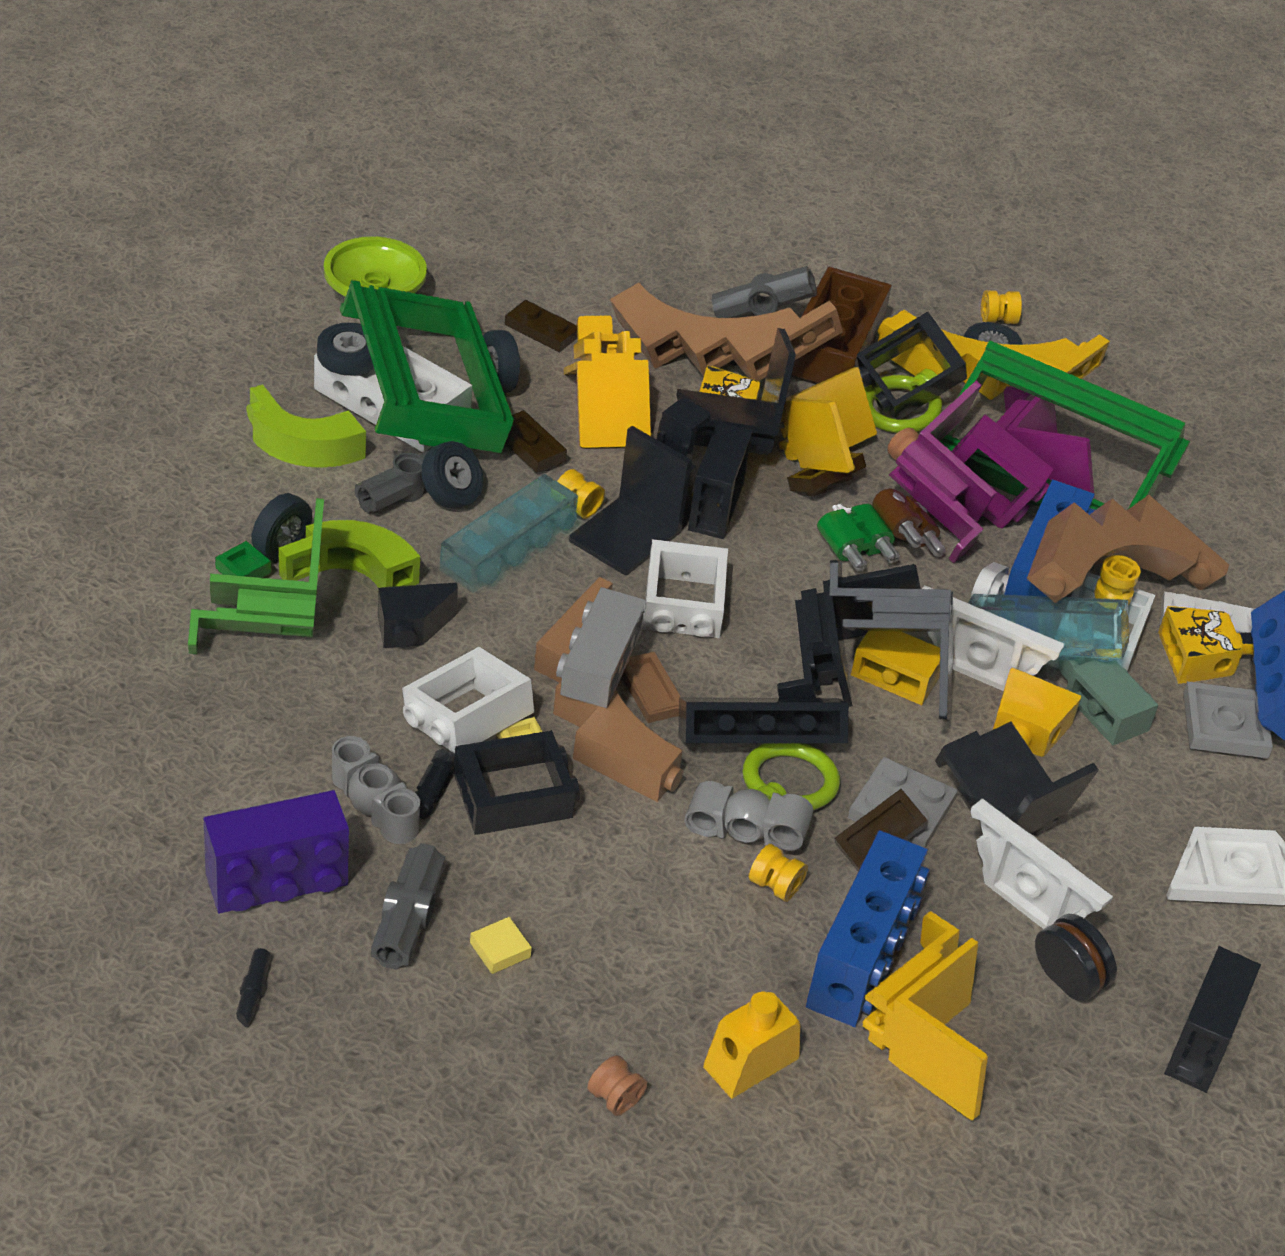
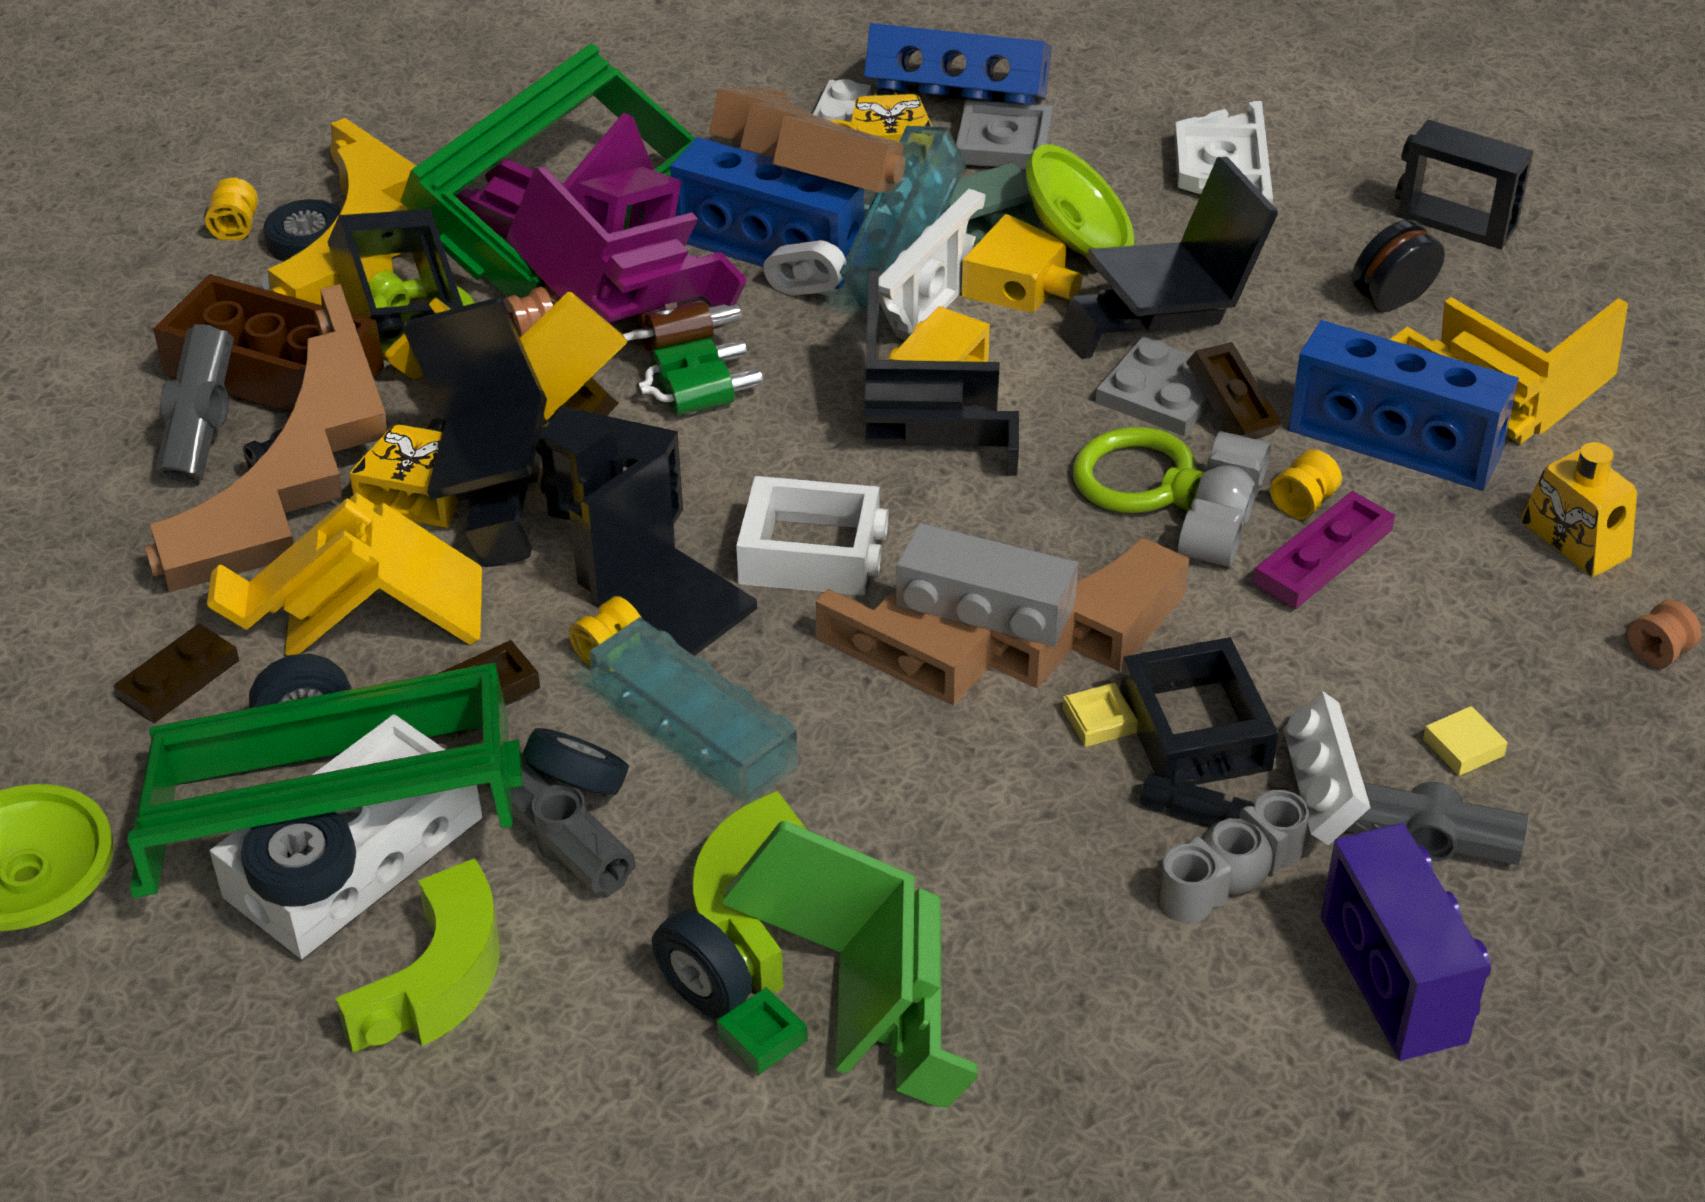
camera: 80 degrees left, 0 degrees up
(253, 986) = (1595, 992): black piece -> none
(415, 612) = (879, 812): black slope -> none
(451, 835) = (1326, 768): none -> white plate
(505, 701) = (1030, 711): white window -> none
(705, 879) = (1323, 549): none -> magenta plate
(763, 720) = (1066, 473): black brick -> none
(908, 612) = (958, 289): piece -> none
(1031, 873) = (1299, 274): white wing -> none
(1131, 733) = (1075, 201): none -> lime dish

